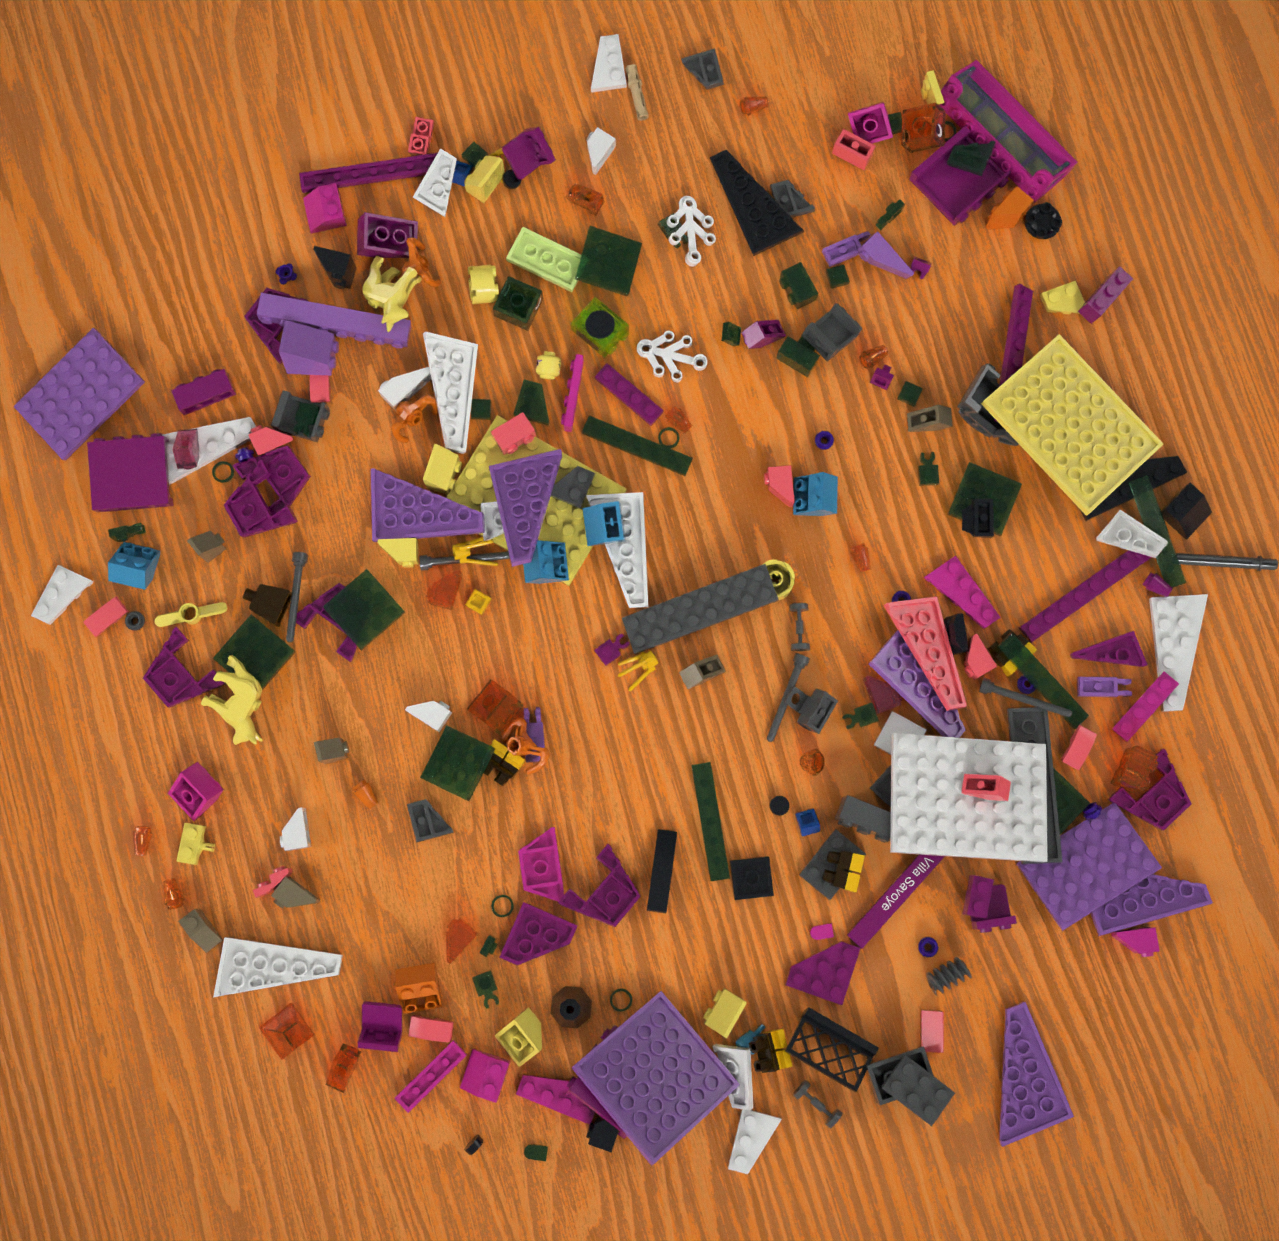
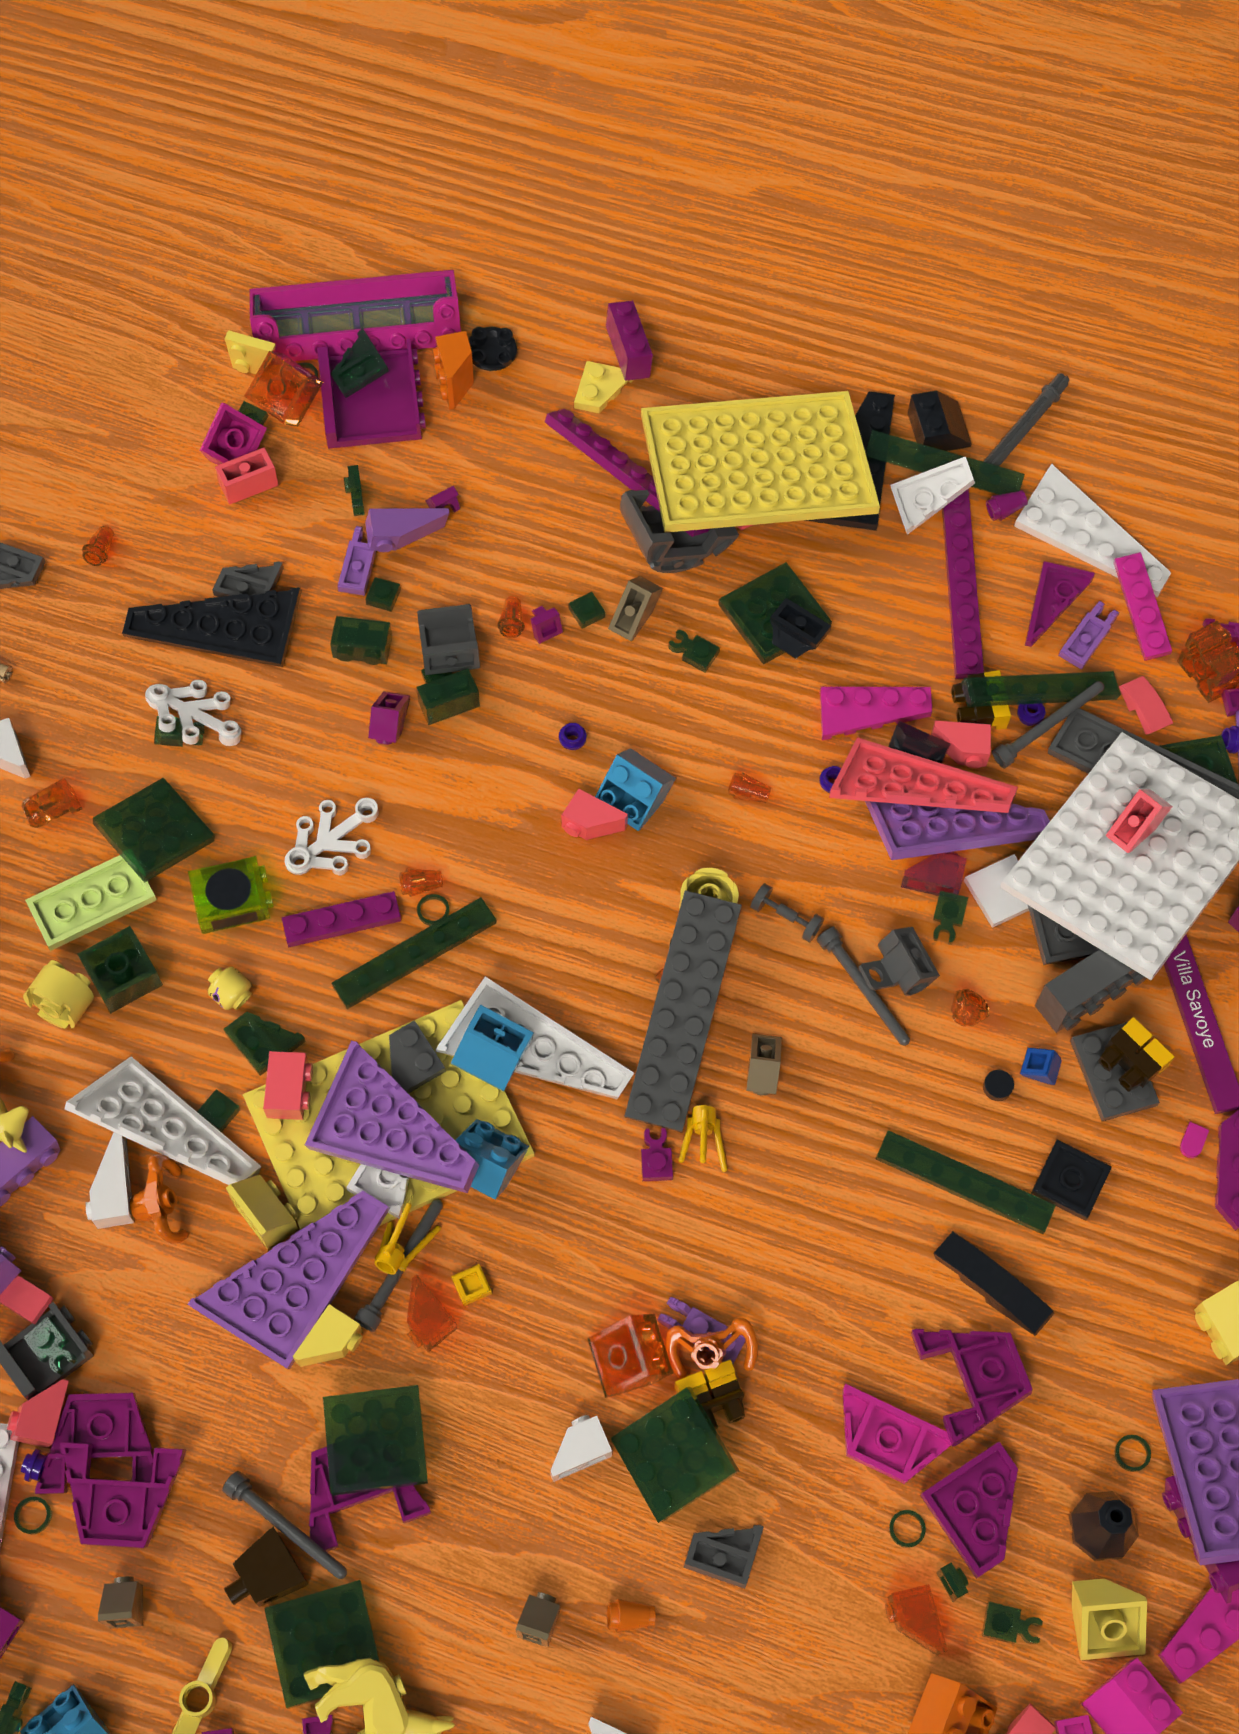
camera: 55 degrees left, 15 degrees down
(571, 400) = (295, 989): dark pink plate -> none
(731, 334) = (360, 752): clear green plate -> none

